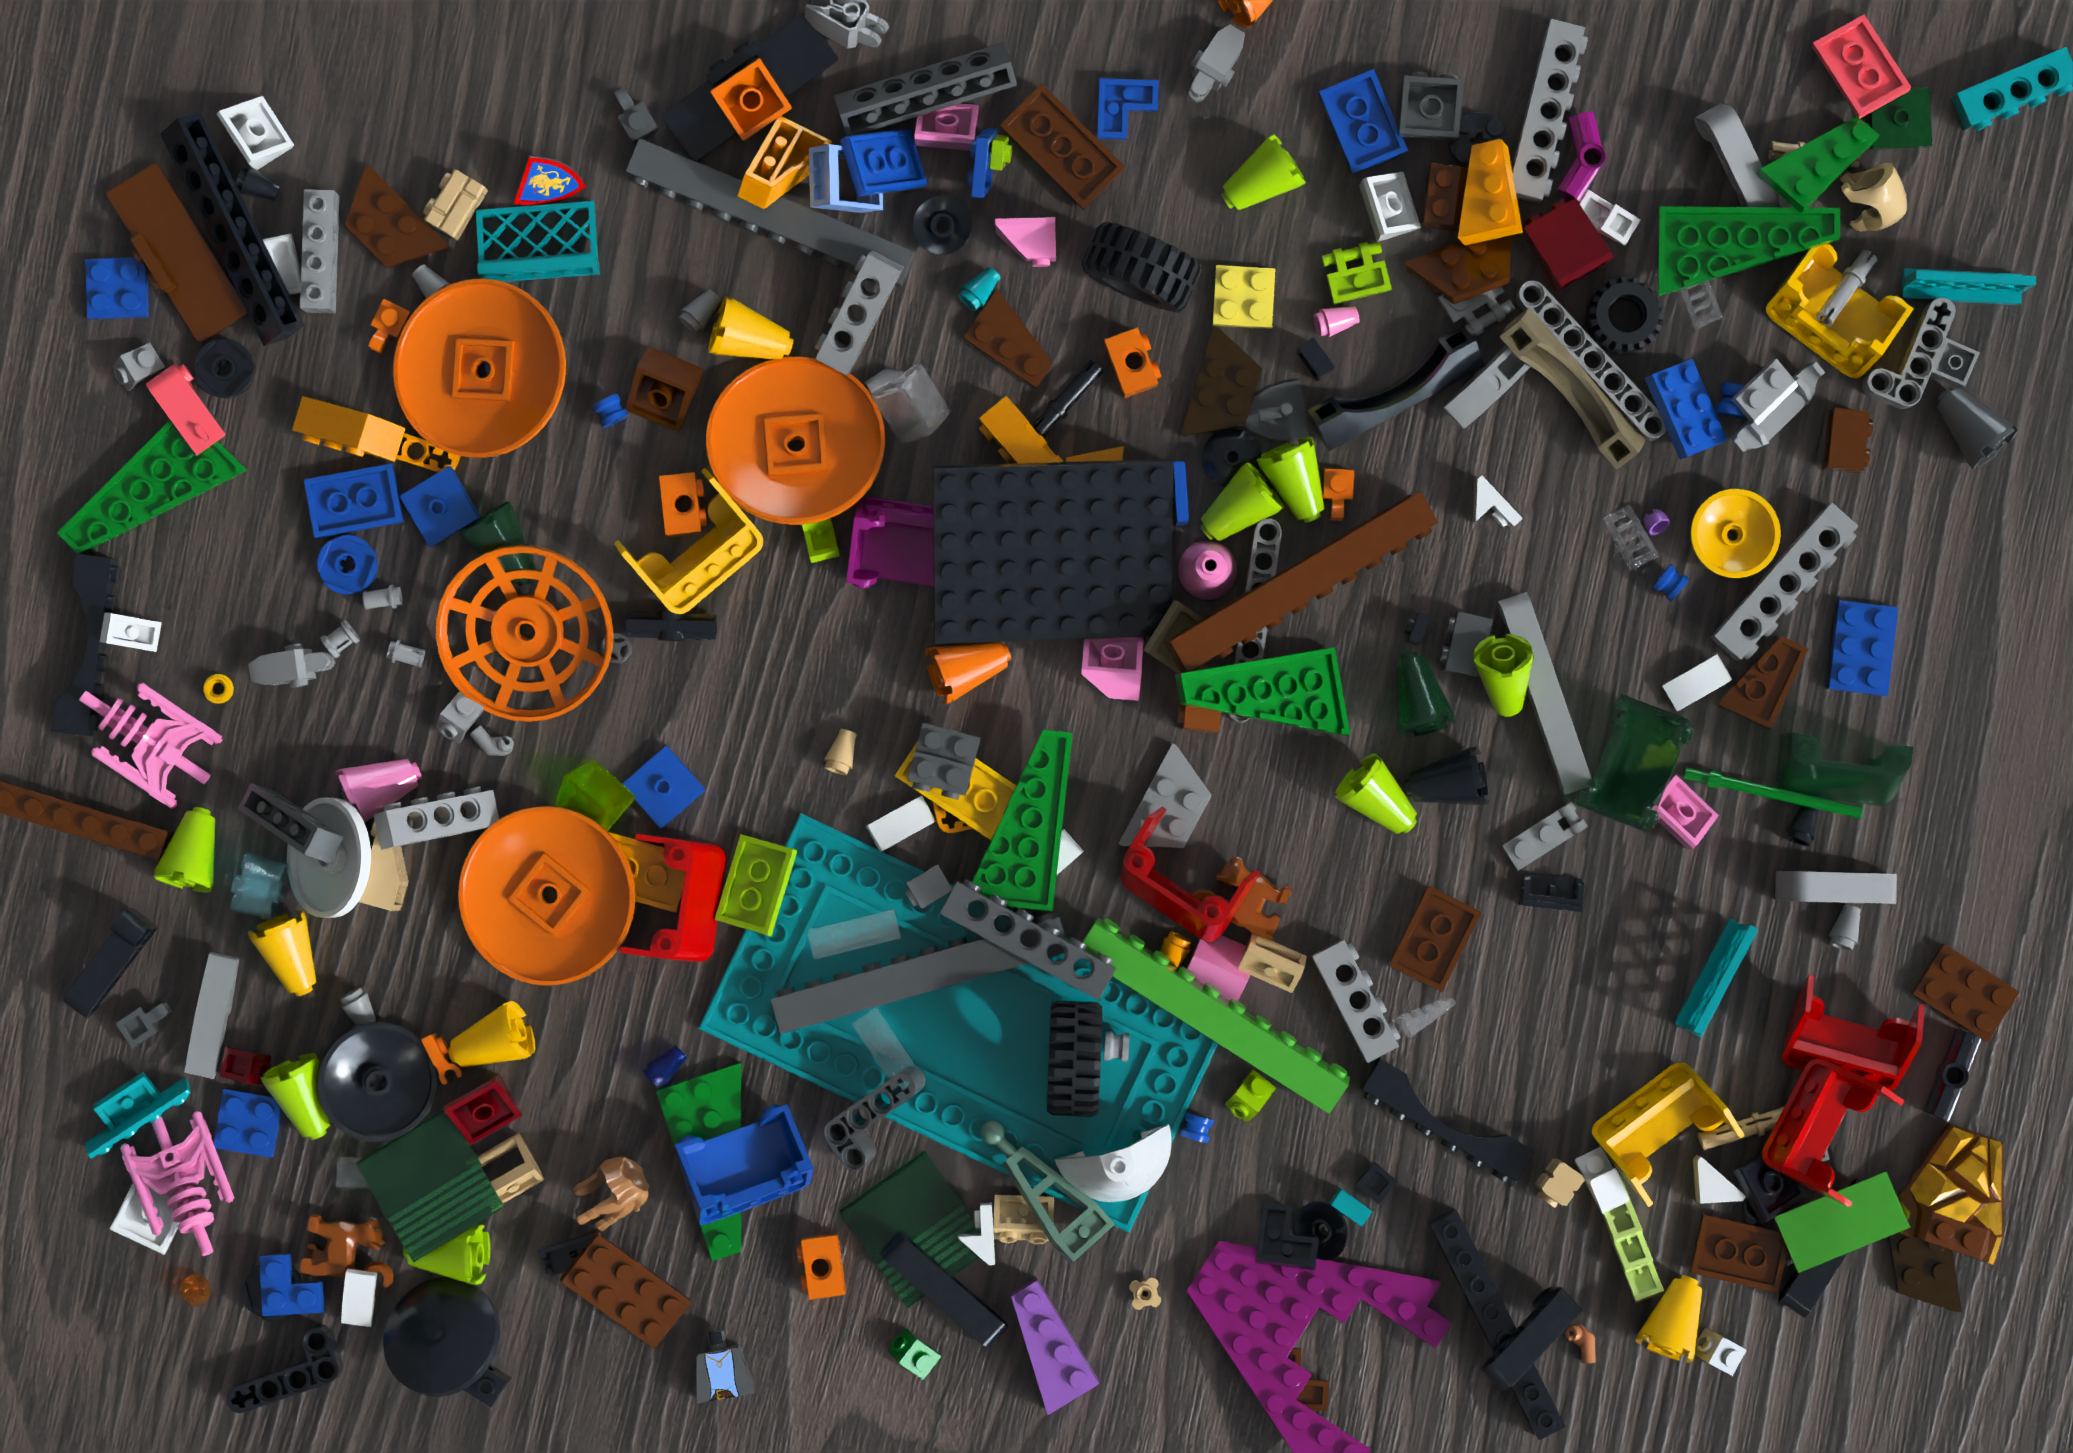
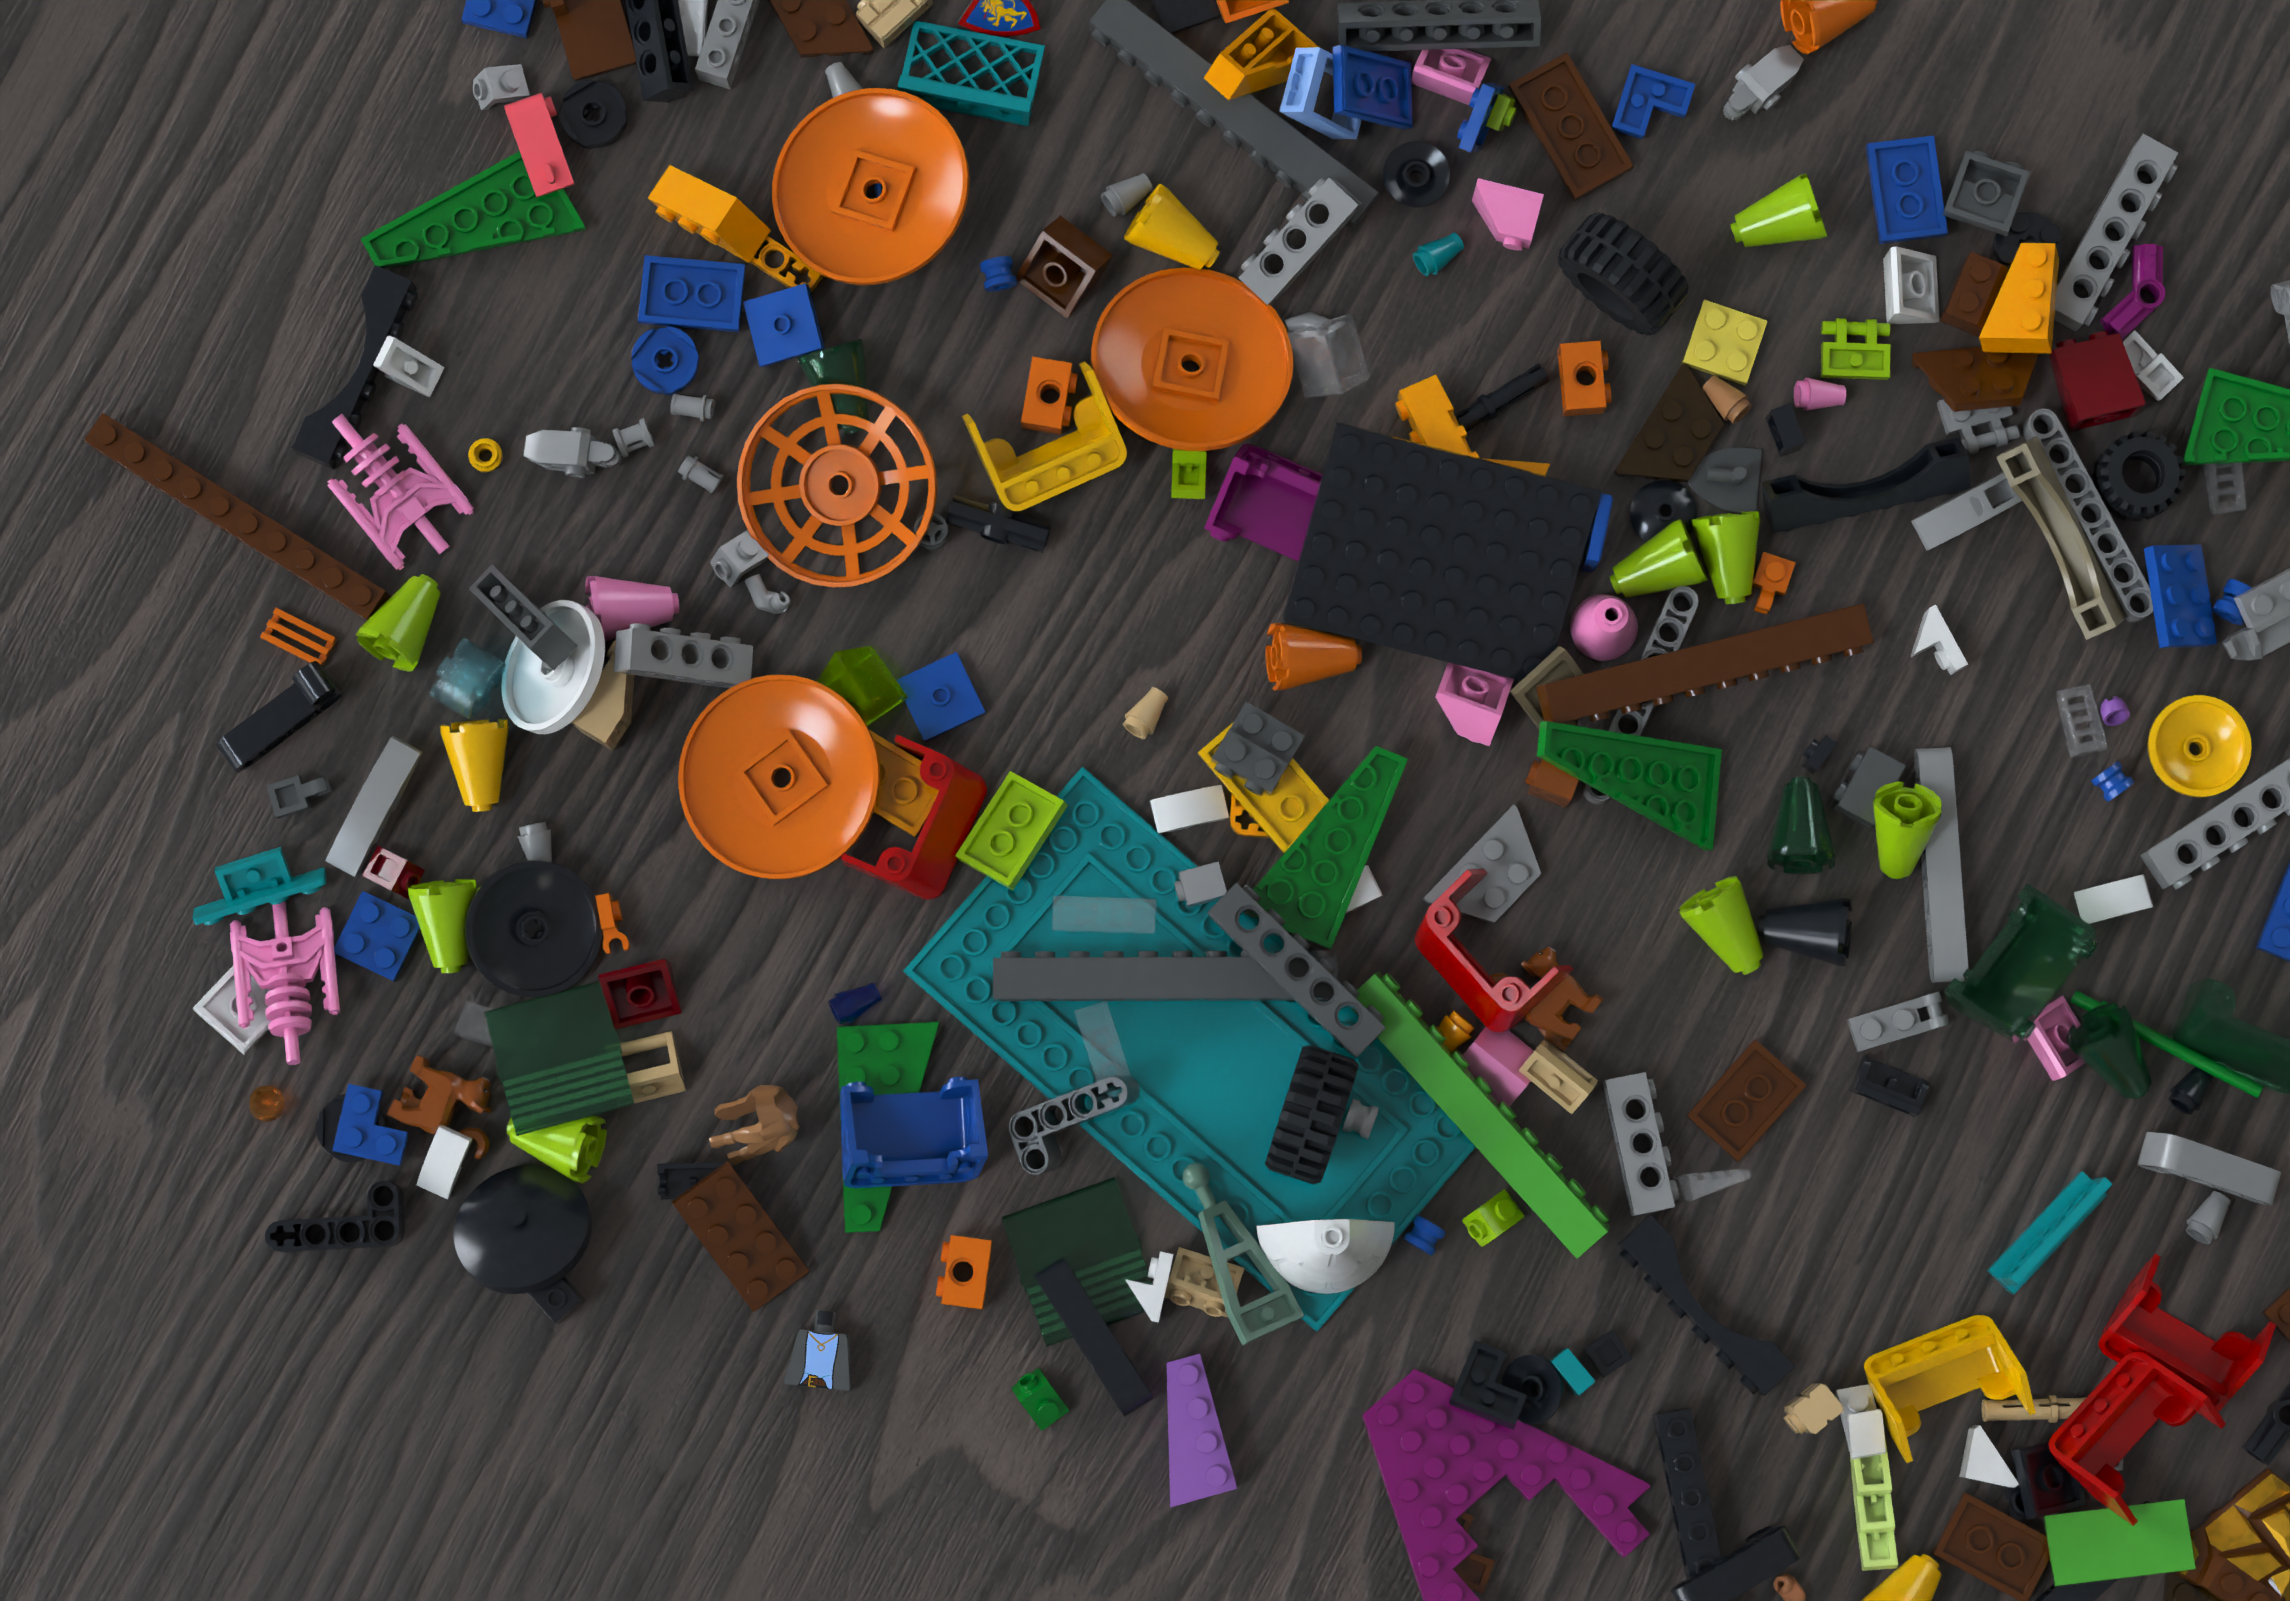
camera: 20 degrees right, 5 degrees down
(80, 884) = (273, 625): none -> orange tile
(389, 322) = (784, 115): orange plate -> none
(494, 1038) = (675, 918): yellow cone -> none
(1007, 341) = (1453, 319): reddish brown wing -> none
(1152, 1297) = (1308, 1412): tan plate -> none
(1259, 346) = (1727, 400): none -> medium nougat cone
(1728, 811) = (2112, 1049): none -> clear green cone
(1766, 683) = (2190, 922): reddish brown wing -> none

